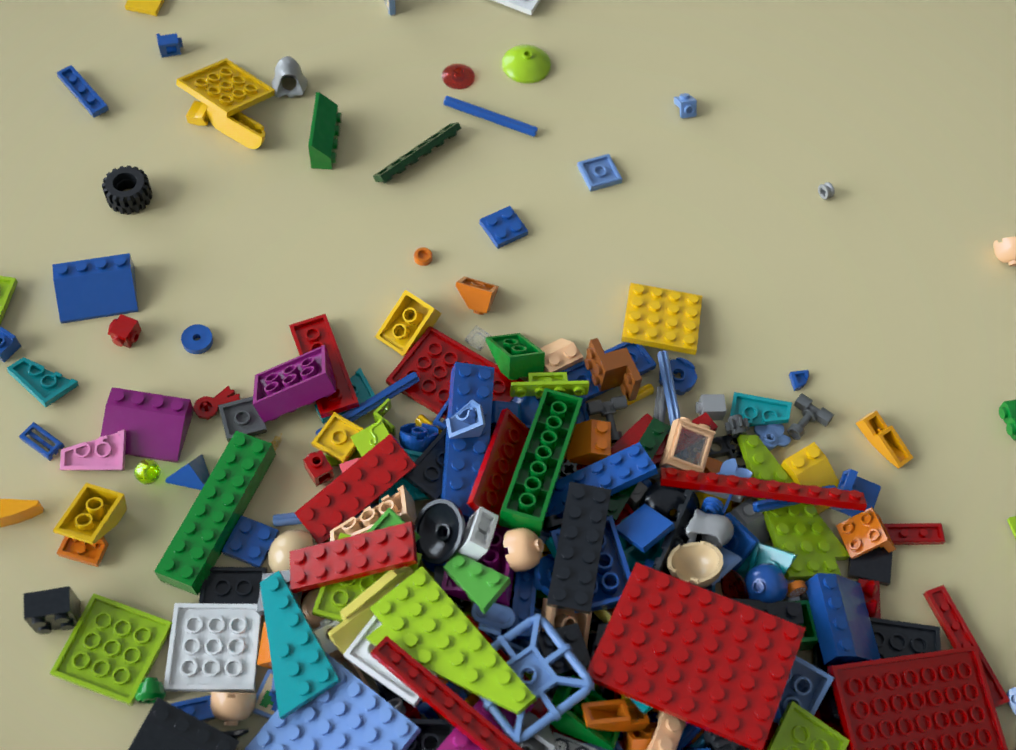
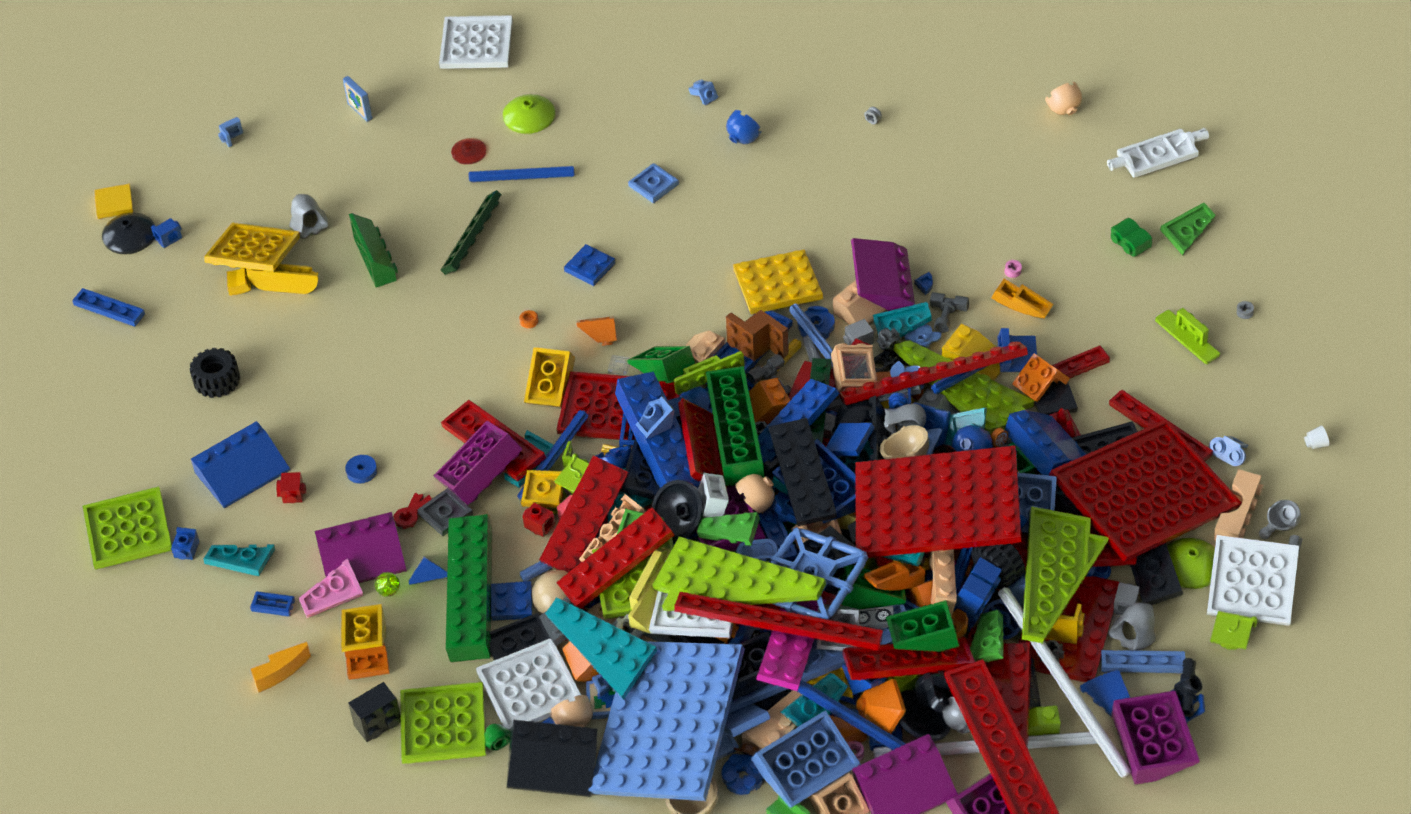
camera: 15 degrees left, 10 degrees down
(139, 32) = (128, 233): none -> black dish
(701, 154) = (742, 128): none -> blue cylinder
(726, 374) = (854, 308): none -> light nougat slope
(762, 355) = (882, 273): none -> magenta slope
(894, 399) = (1017, 268): none -> bright pink bush

